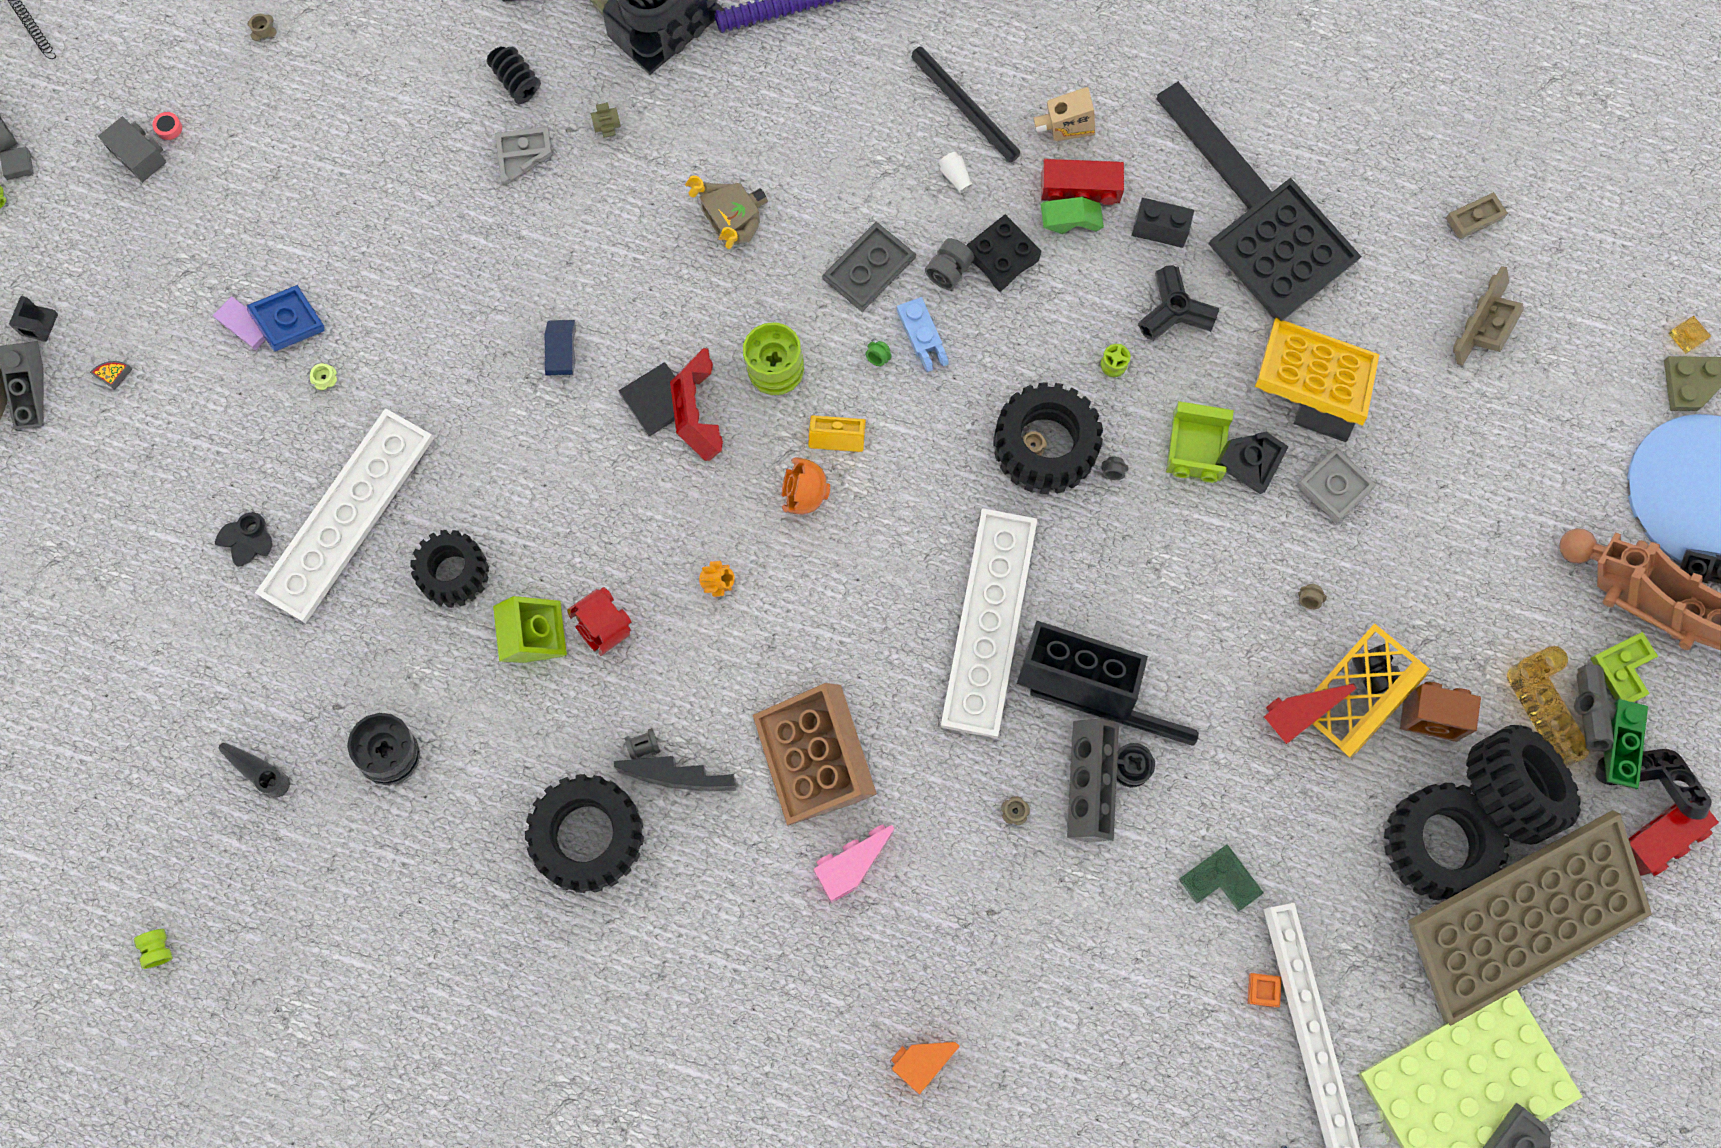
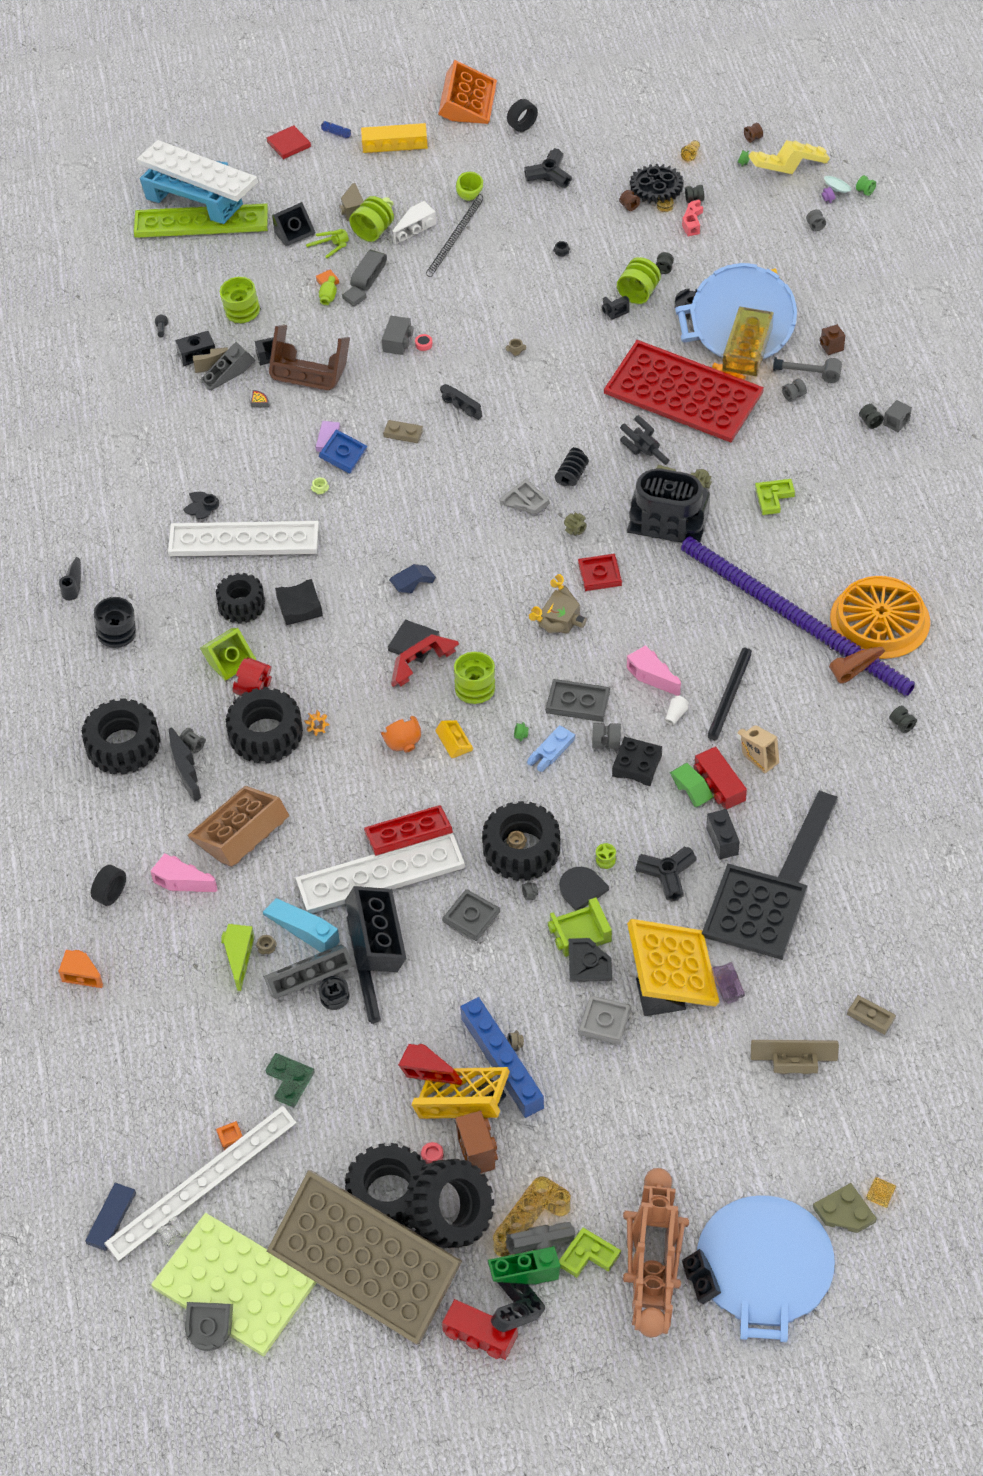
camera: 65 degrees right, 20 degrees down
(106, 292) = (289, 369): none -> reddish brown windscreen
(302, 230) = (403, 431): none -> dark tan plate
(307, 136) = (461, 401): none -> black hinge
(505, 501) = (299, 602): none -> black brick
(678, 607) = (258, 706): none -> black tyre
(692, 136) = (599, 572): none -> red tile
(819, 964) = (108, 885): none -> black tyre
(881, 164) = (650, 670): none -> bright pink slope
(947, 557) = (408, 830): none -> red tile
(1007, 849) = (238, 946): none -> lime slope
(1011, 752) = (303, 924): none -> medium azure slope
(1110, 550) = (471, 915): none -> dark grey plate
(1139, 410) = (581, 885): none -> black tile
(1328, 621) = (501, 1054): none -> blue brick
(1363, 330) = (728, 982): none -> clear purple hips
(1409, 767) = (432, 1152): none -> coral tile

